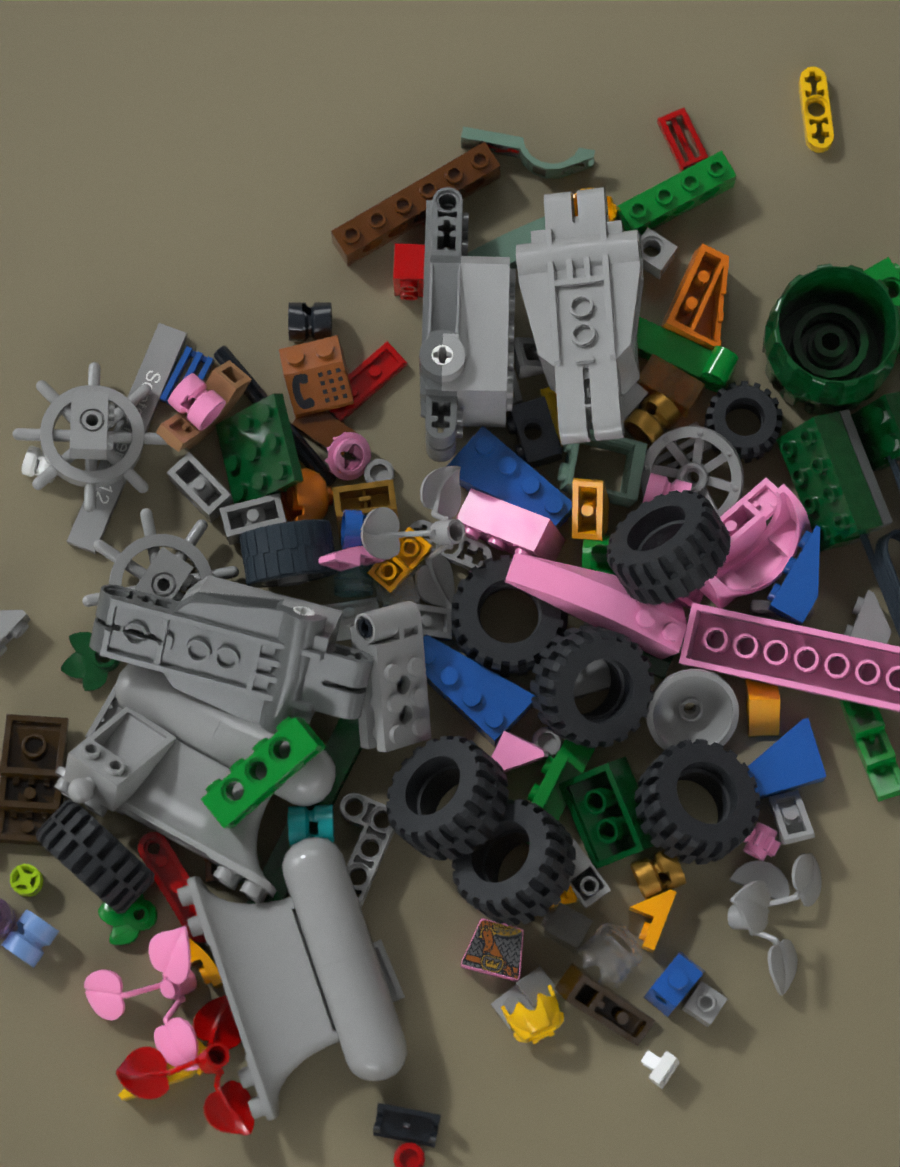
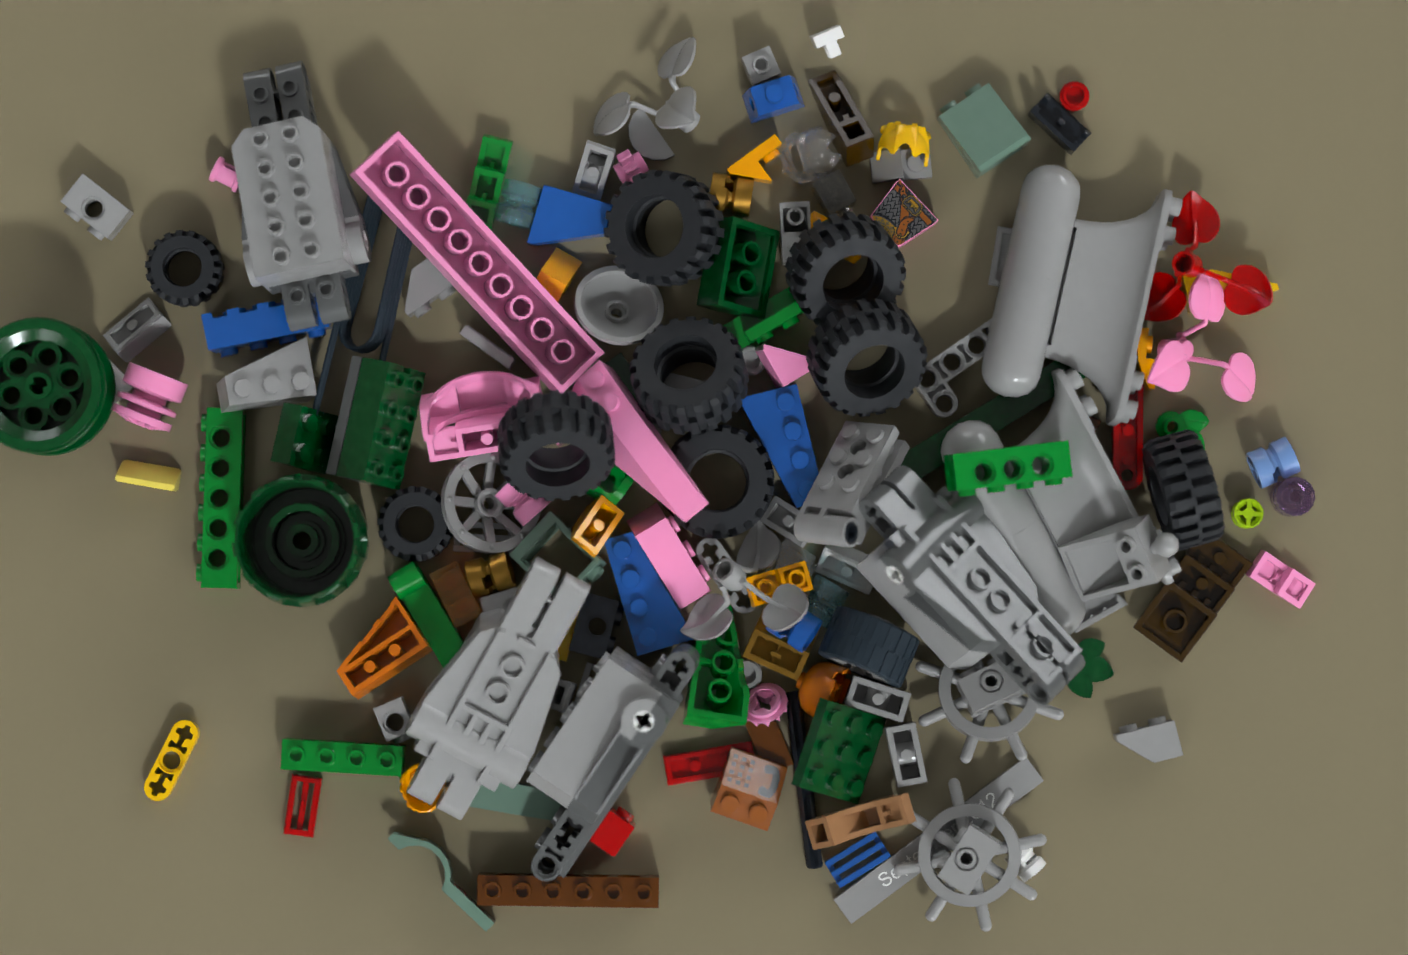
camera: 150 degrees left, 10 degrees up
(199, 411) = (865, 826): bright pink wheel -> none
(299, 823) = (995, 416): teal wheel -> none
(309, 321) = (723, 842): black wheel -> none
(348, 559) = (828, 609): bright pink slope -> none
(399, 449) = (718, 688): none -> green wedge
(472, 1072) = (982, 129): none -> sand green slope
(800, 588) = (465, 350): blue slope -> none
(837, 747) = (519, 193): none -> clear light blue wheel

